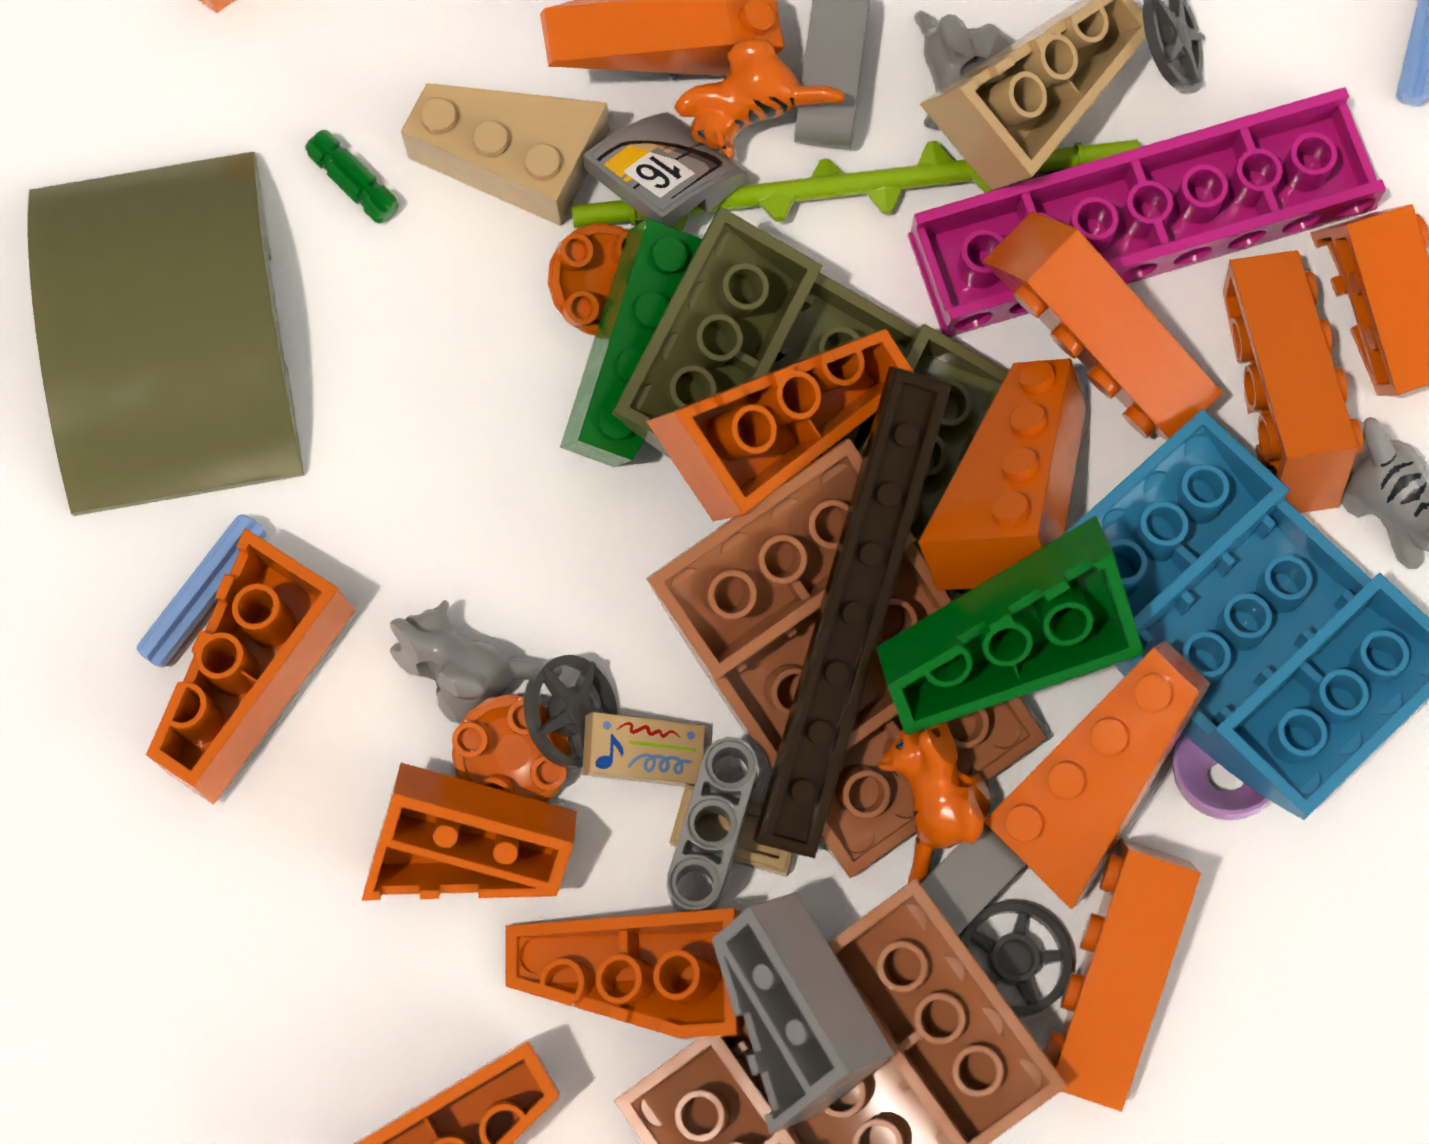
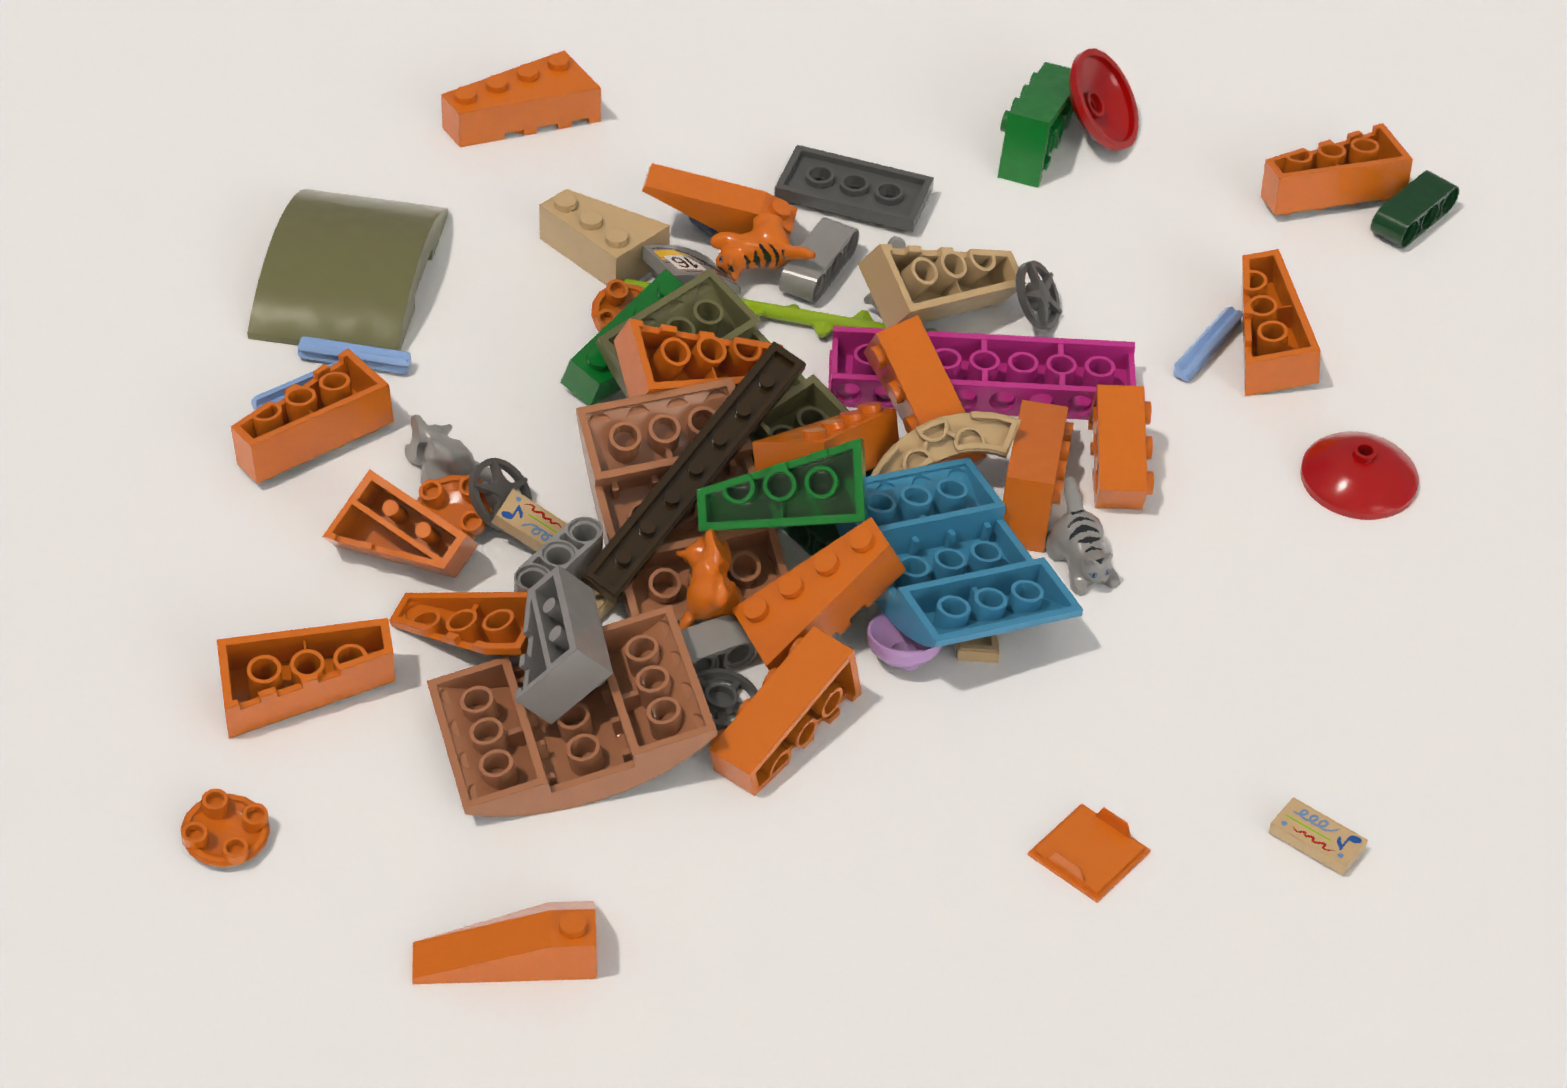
camera: 15 degrees right, 30 degrees down
(247, 499) = (375, 357): none -> light blue axle
(351, 176) = (500, 232): green axle -> none
(1156, 400) = (949, 437): none -> tan tile

